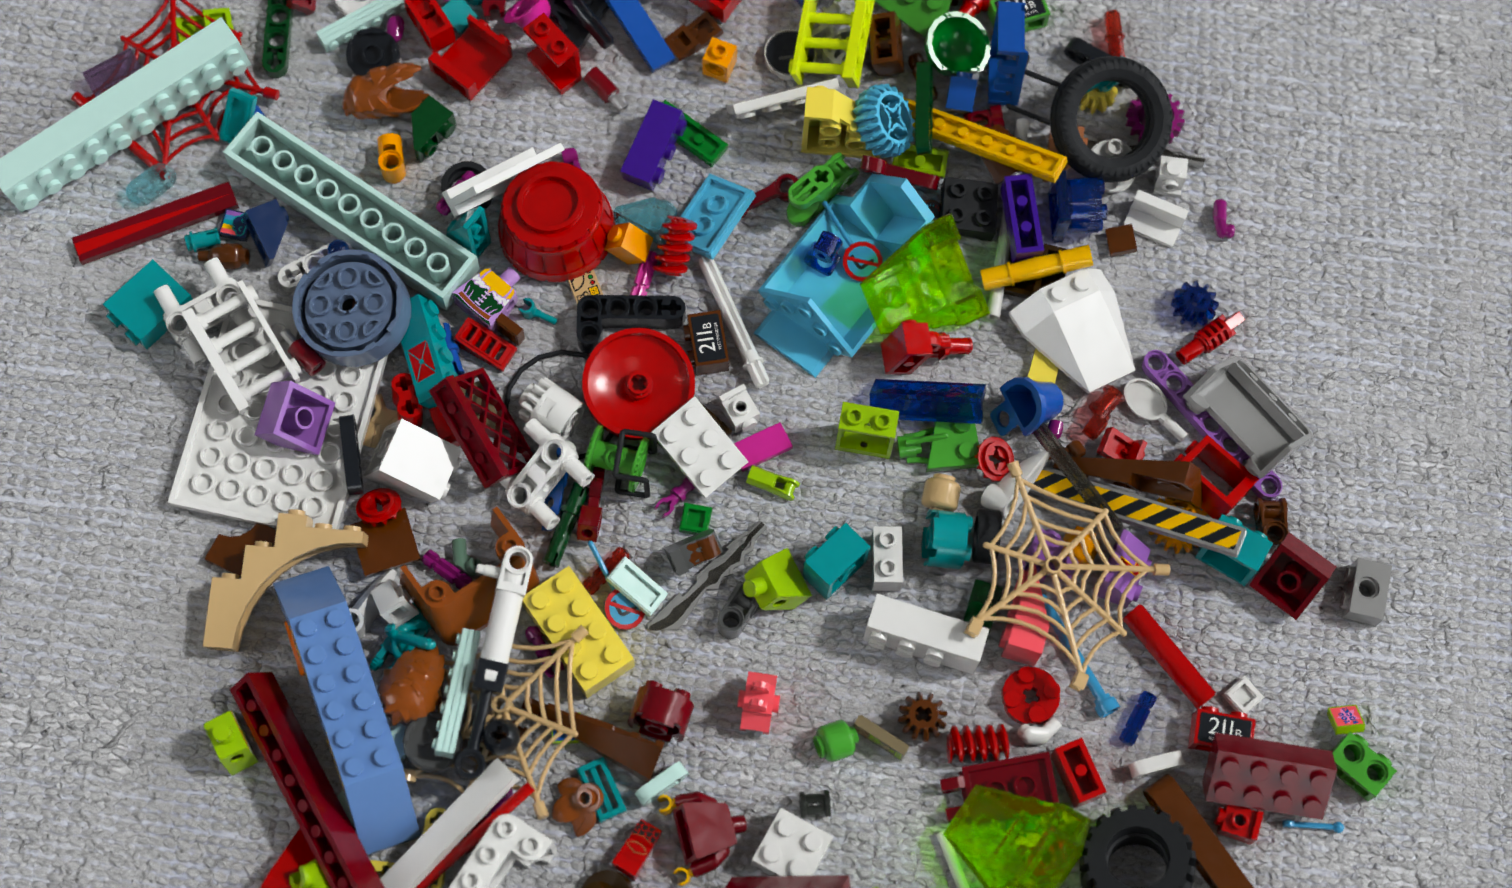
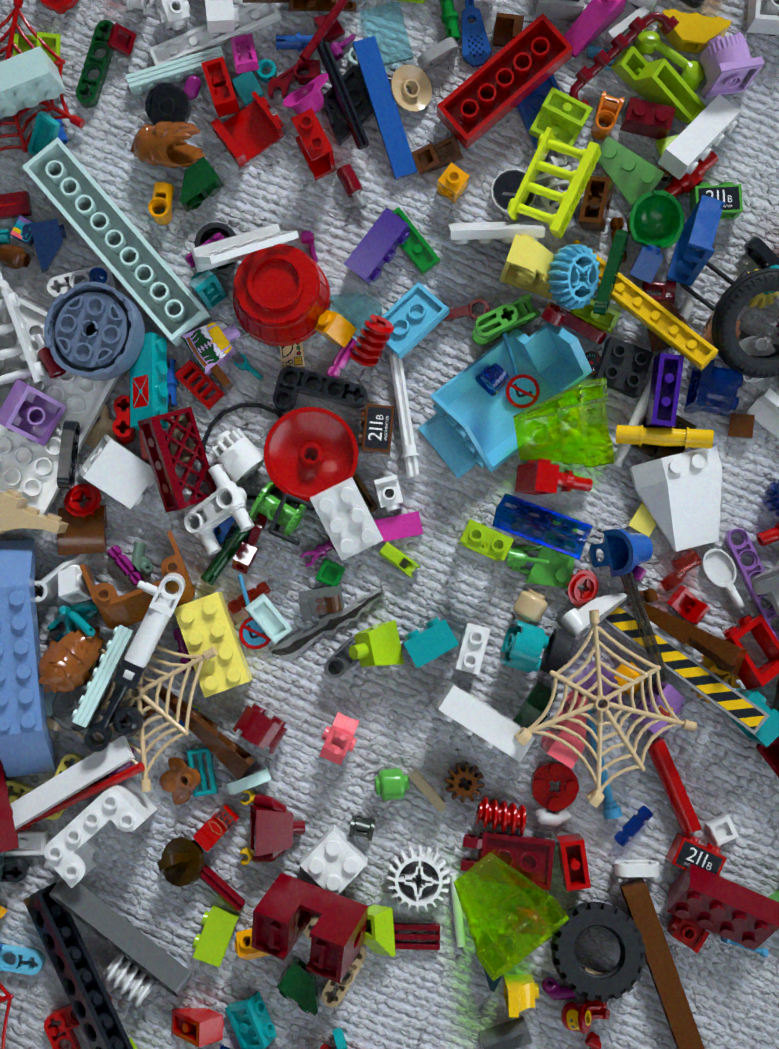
camera: 20 degrees right, 15 degrees up
(886, 849) = (407, 877): none -> white gear

